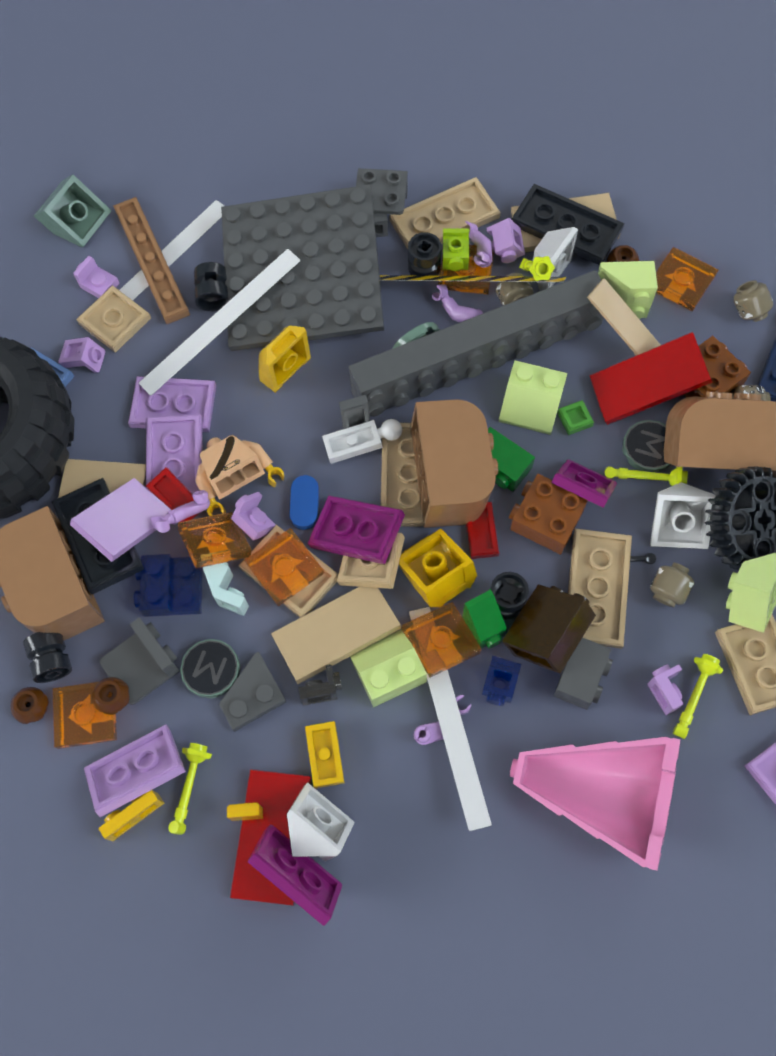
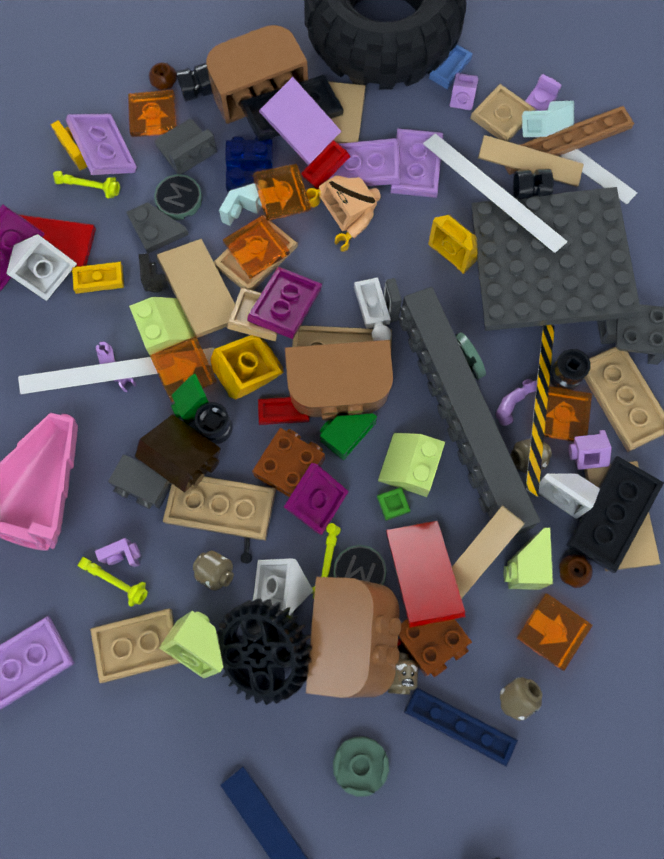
camera: 90 degrees right, 5 degrees up
(72, 211) = (612, 73): sand green slope -> none
(118, 700) = (166, 125): reddish brown plate -> none
(134, 275) = (544, 123): none -> light aqua slope
(178, 291) = (525, 158): none -> tan piece
(182, 512) = (313, 178): lavender arm -> none
(244, 811) = (56, 217): yellow tile -> none
(251, 518) = (302, 222): lavender bracket -> none
(304, 502) = (318, 265): blue tile -> none
(455, 249) = (569, 405): lime brick -> none
(483, 244) = (571, 427): lavender arm -> none
(504, 671) = (134, 406): clear blue brick -> none
(540, 267) = (541, 466): neon yellow piece -> none

